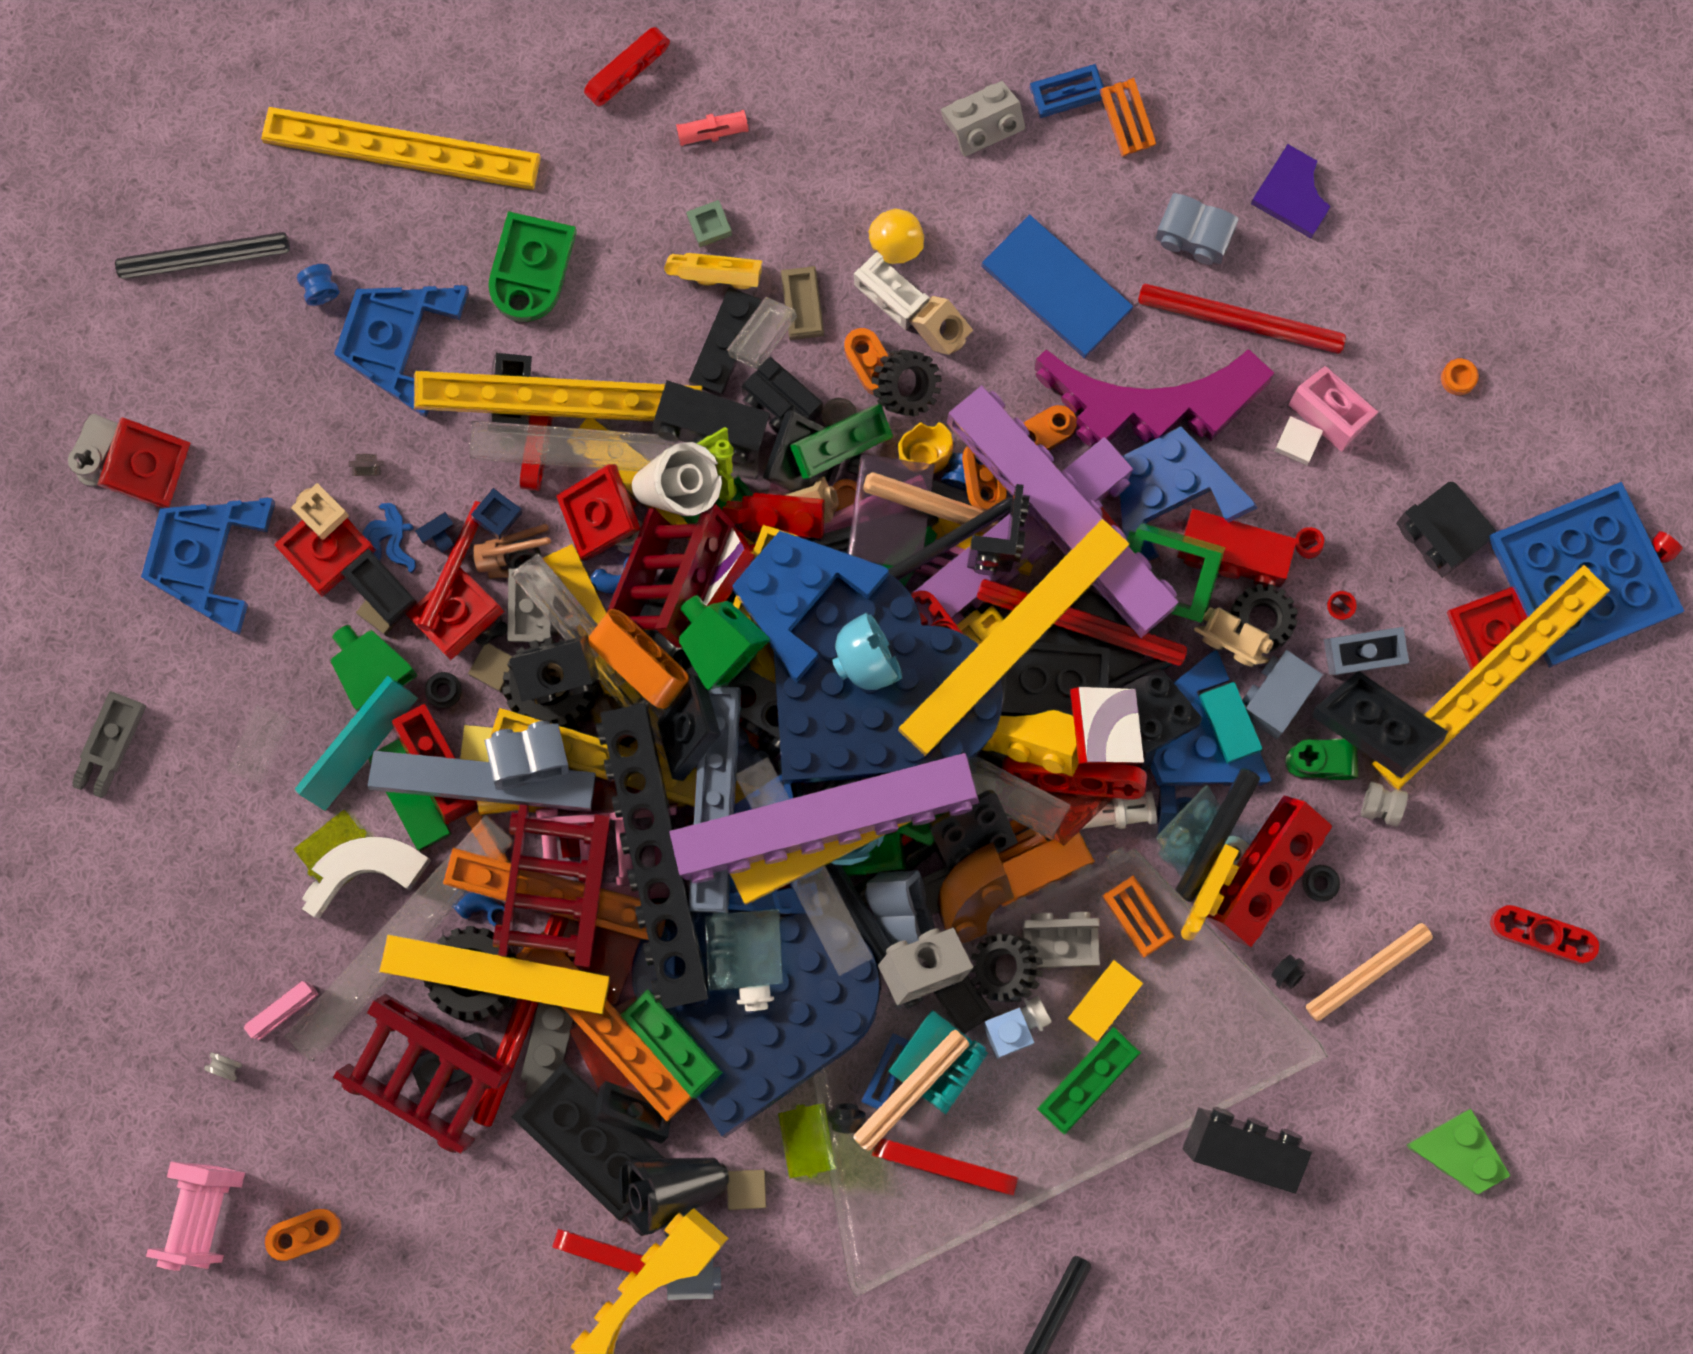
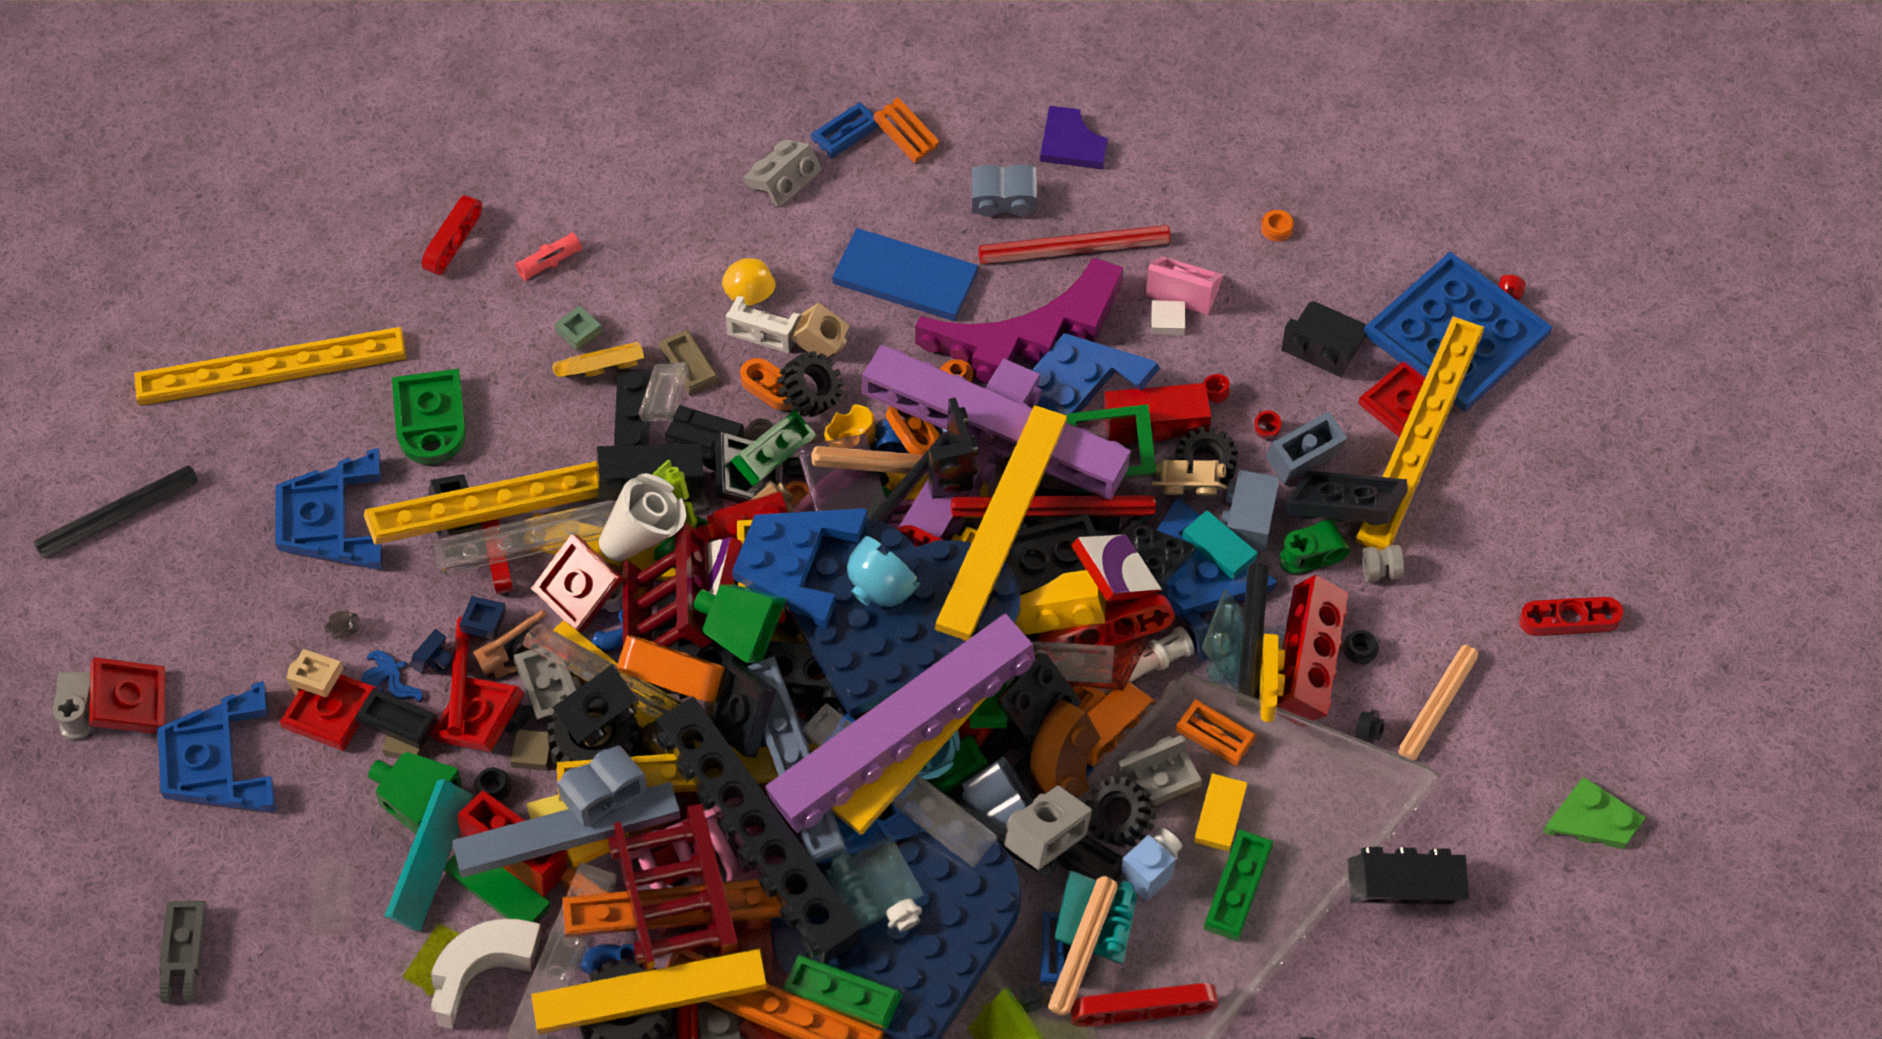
camera: 25 degrees left, 20 degrees down
(317, 284) = (237, 494): blue wheel -> none

